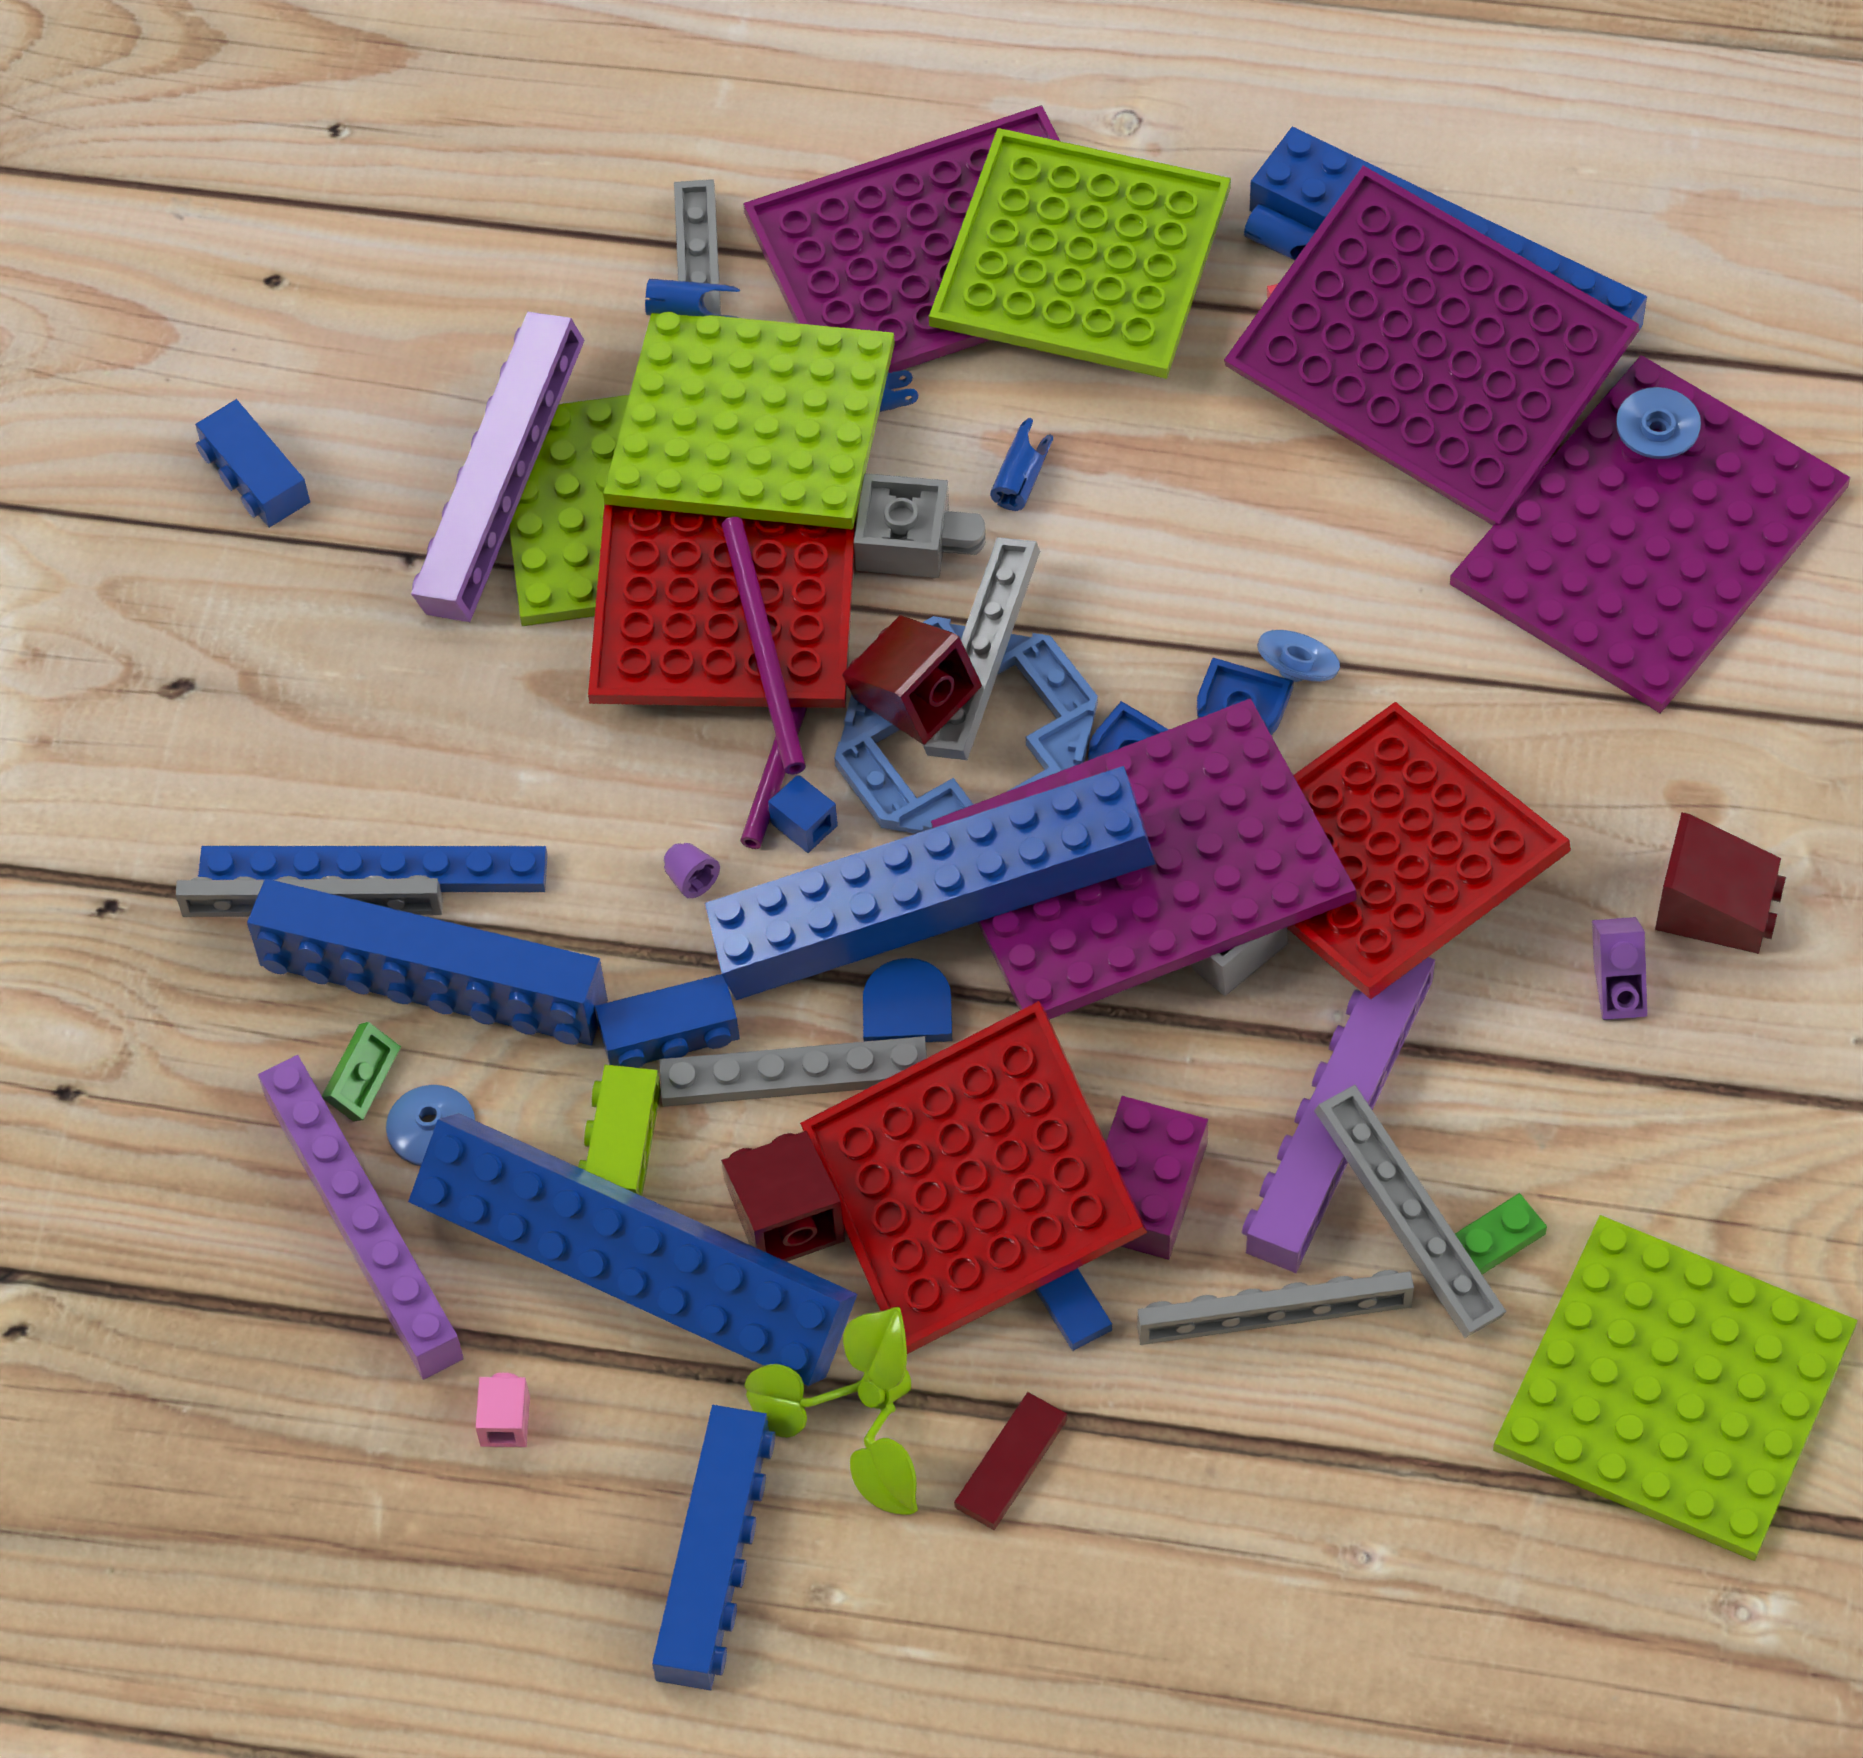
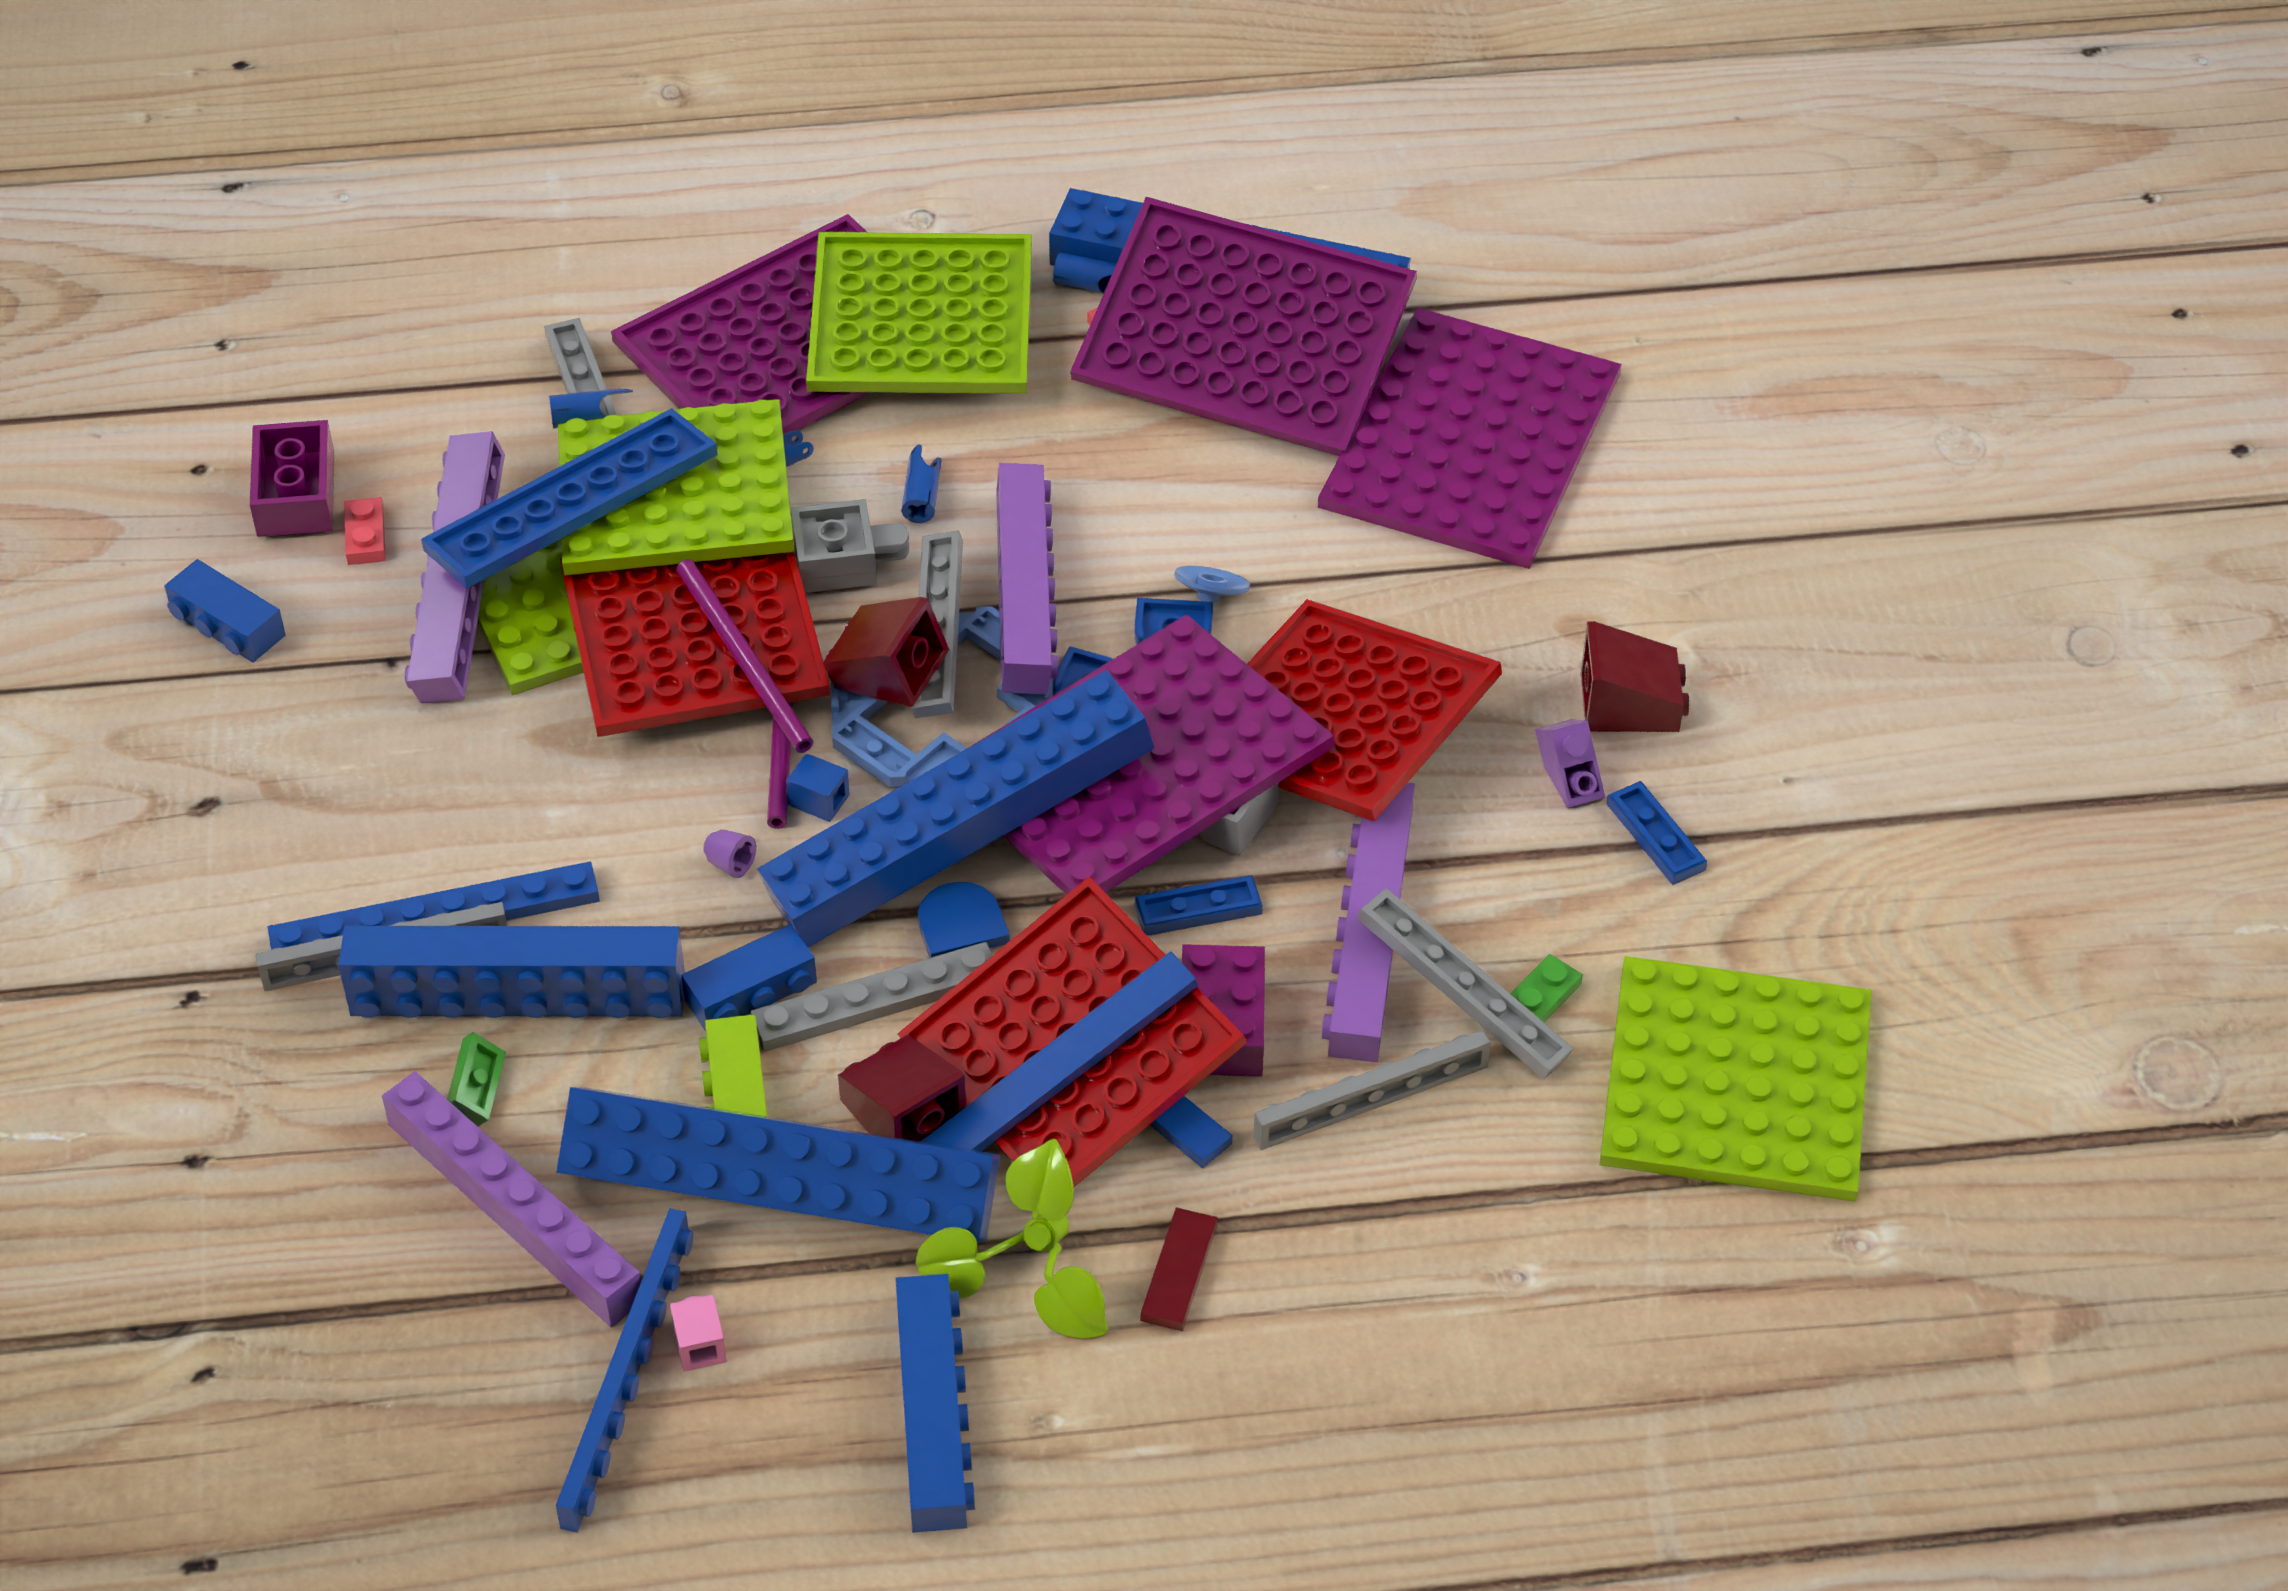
camera: 20 degrees left, 10 degrees down
(359, 319) = (292, 478): none -> magenta brick
(404, 1126) = (534, 1119): medium blue dish -> none
(412, 1444) = (621, 1378): none -> blue plate
(422, 394) = (364, 531): none -> coral plate
(630, 417) = (568, 498): none -> blue plate
(955, 1202) = (1067, 1057): none -> blue tile
(1091, 612) = (1024, 579): none -> medium lavender brick
(1163, 1044) = (1198, 905): none -> blue tile
(1659, 410) = (1454, 347): medium blue dish -> none
(1689, 1073) = (1656, 832): none -> blue tile

